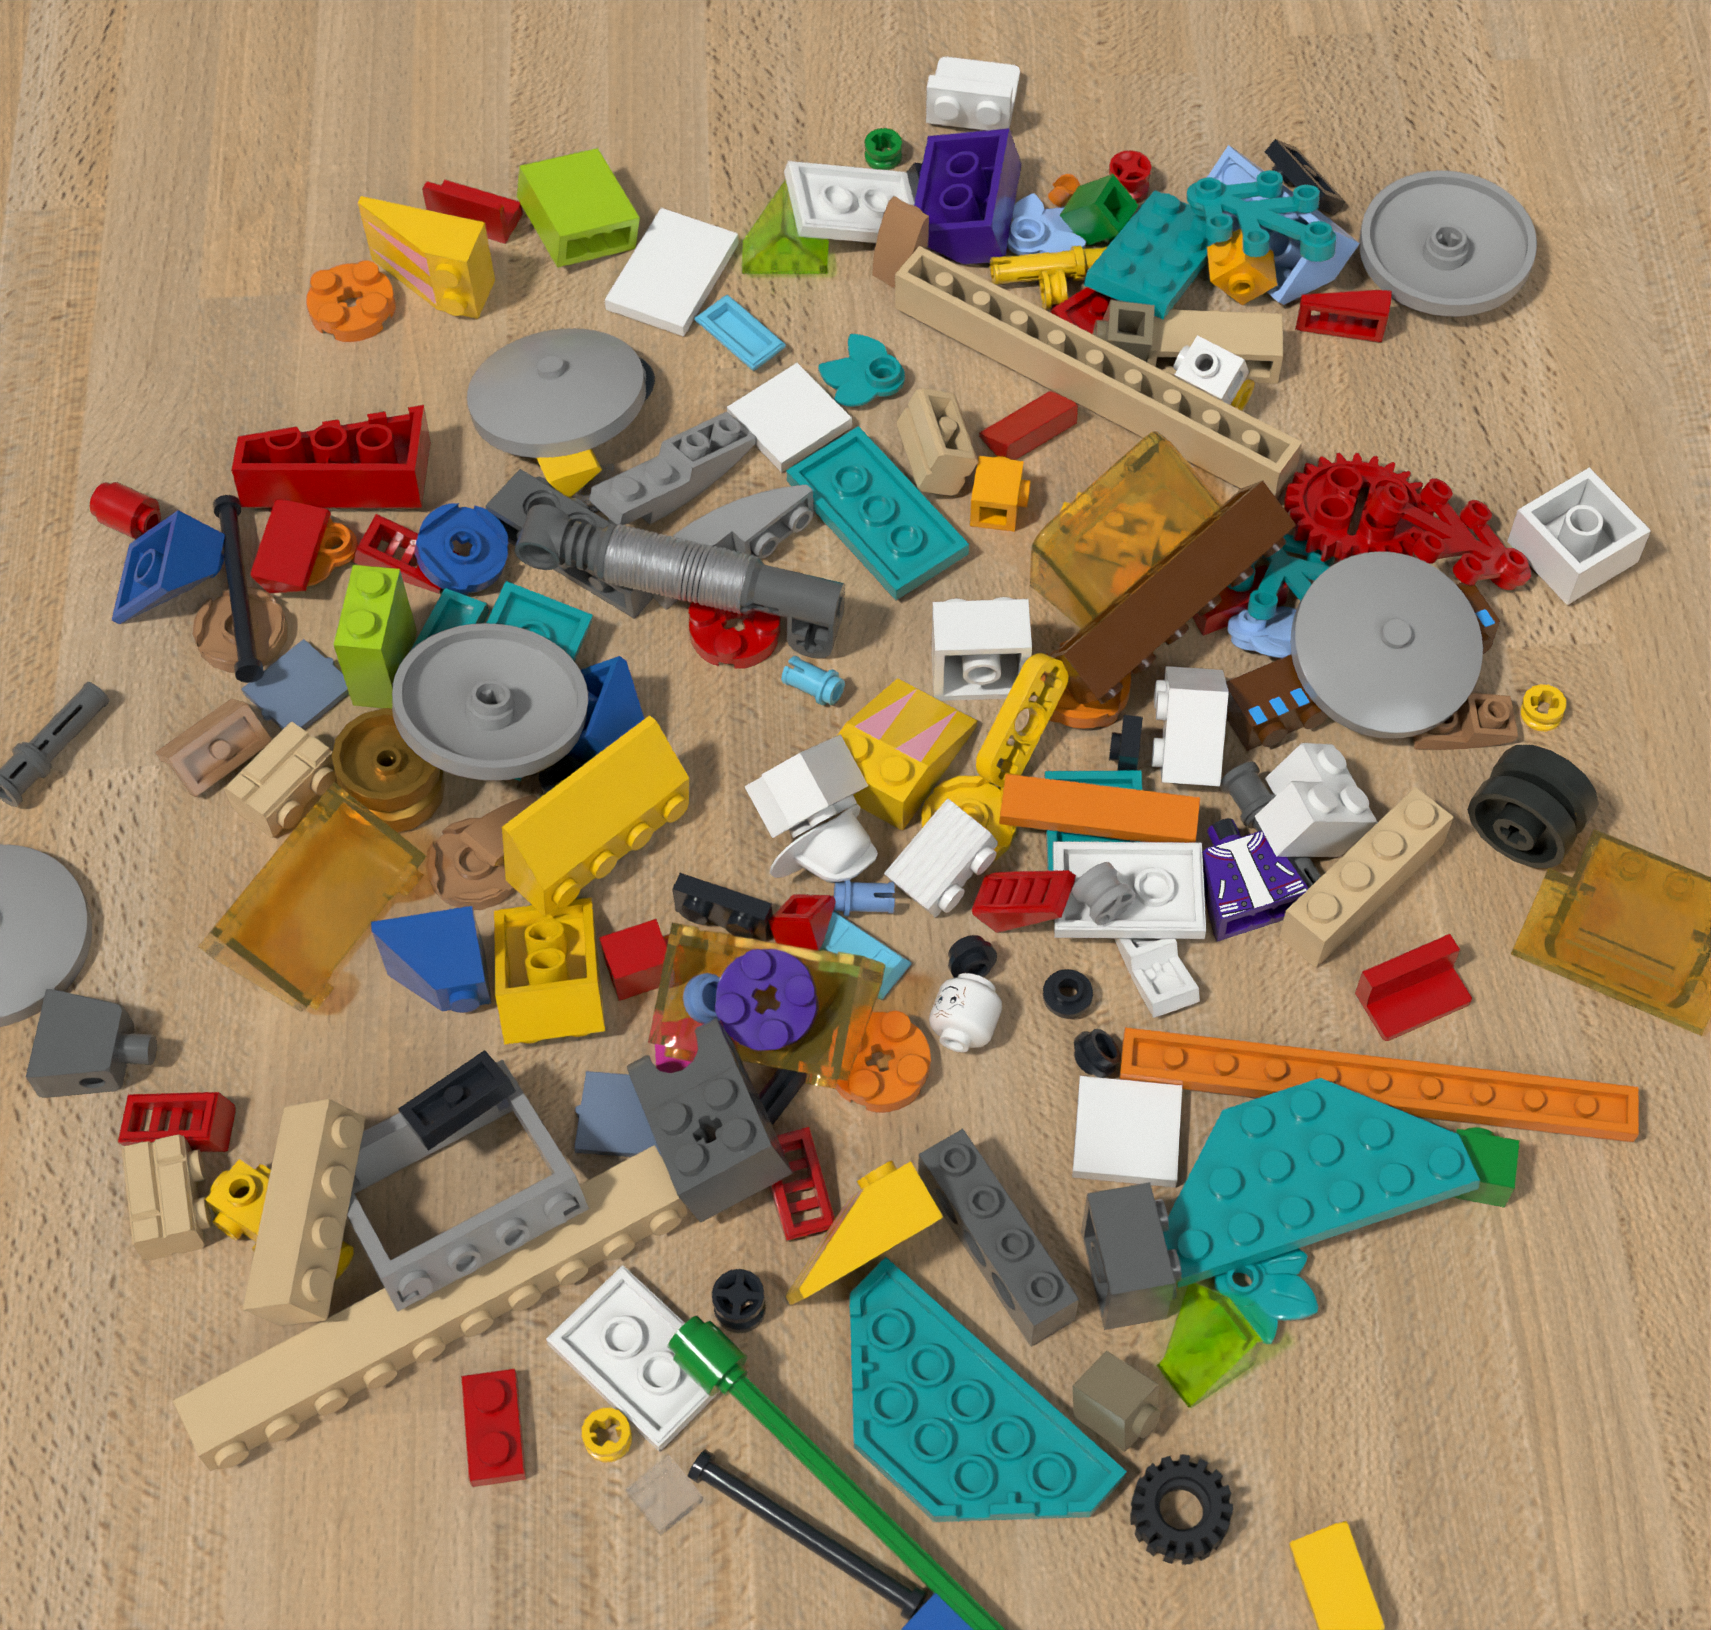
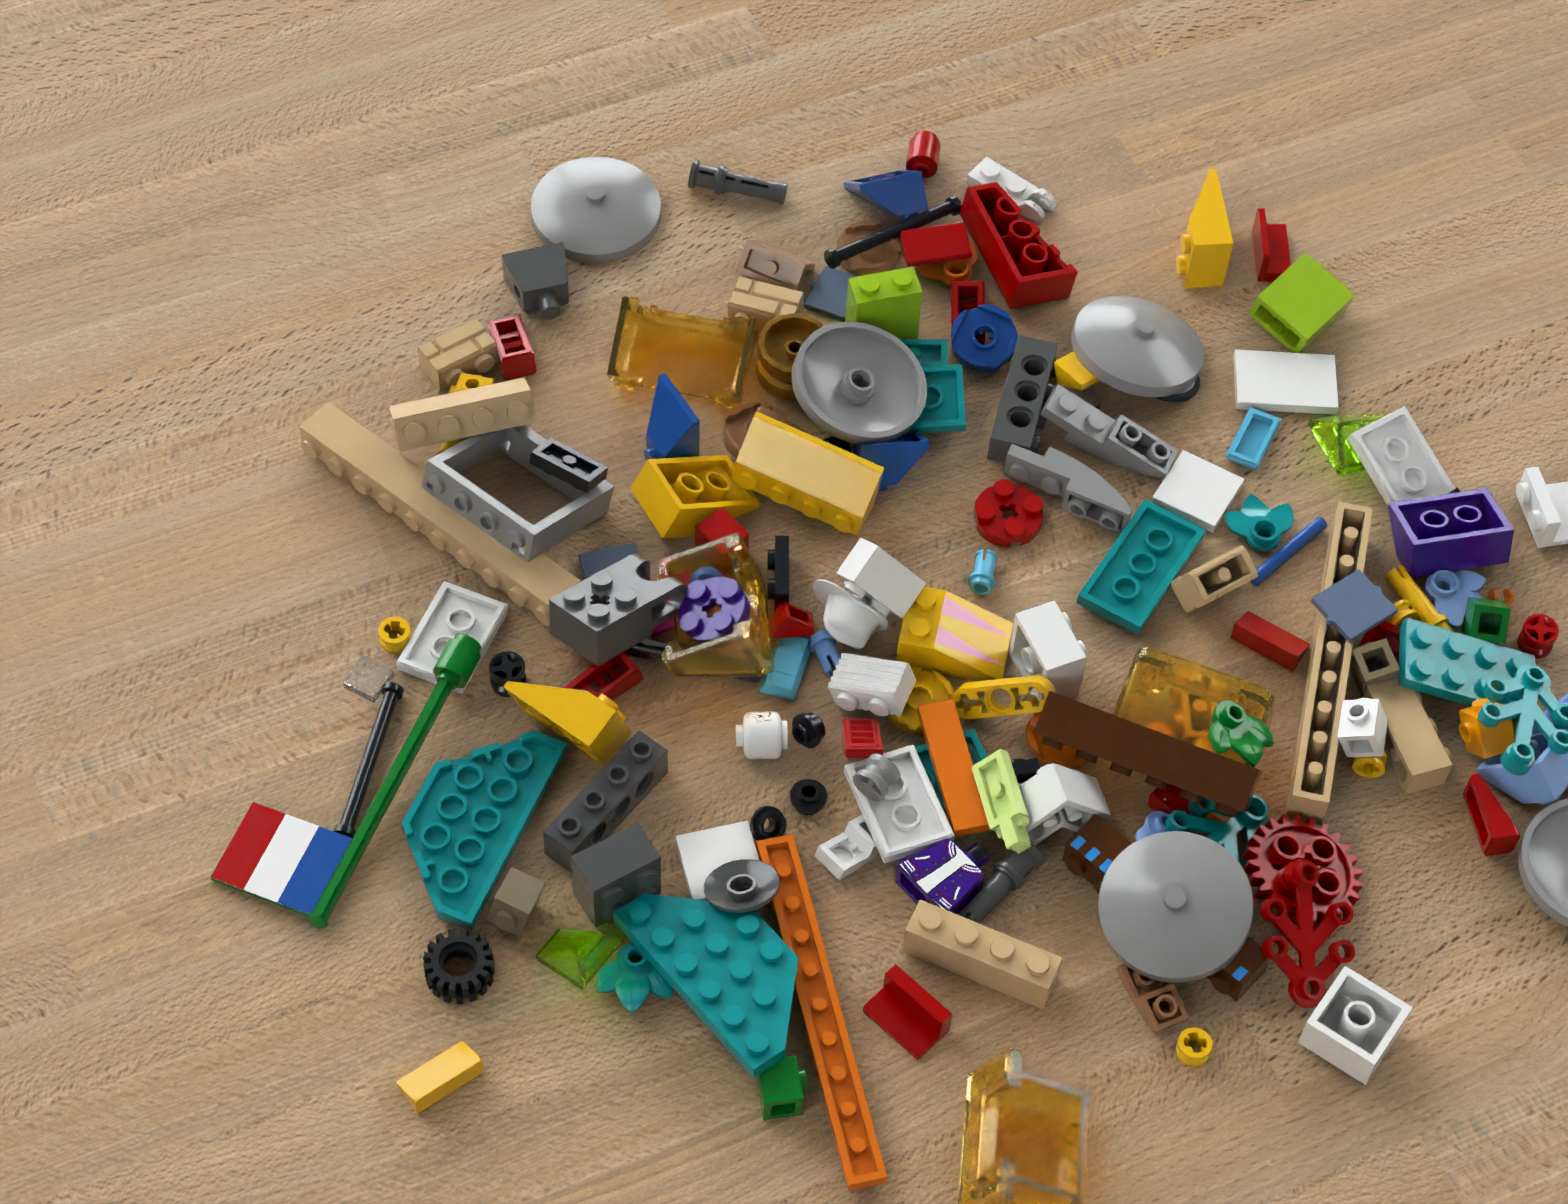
camera: 65 degrees right, 5 degrees down
(214, 445) = (1024, 194): none -> white hinge
(347, 281) = (1155, 197): orange plate -> none
(493, 1428) = (378, 575): red plate -> none
(679, 571) = (1014, 463): piece -> none
(883, 138) = (1475, 464): green bush -> none
(899, 235) = (1381, 494): medium nougat slope -> none
(906, 350) = (1289, 550): none -> blue bar
(906, 1073) = (718, 721): orange plate -> none
(998, 493) = (1195, 632): light orange brick -> none
(1049, 314) = (1354, 605): none -> sand blue piece
(1177, 769) = (1002, 800): none -> yellowish green hinge
(1178, 1094) = (741, 885): none -> dark grey dish
(1201, 482) = (1238, 731): none -> green plate
(1315, 805) = (1018, 903): white brick -> none
(1533, 806) = (1084, 1042): pearl dark grey wheel -> none

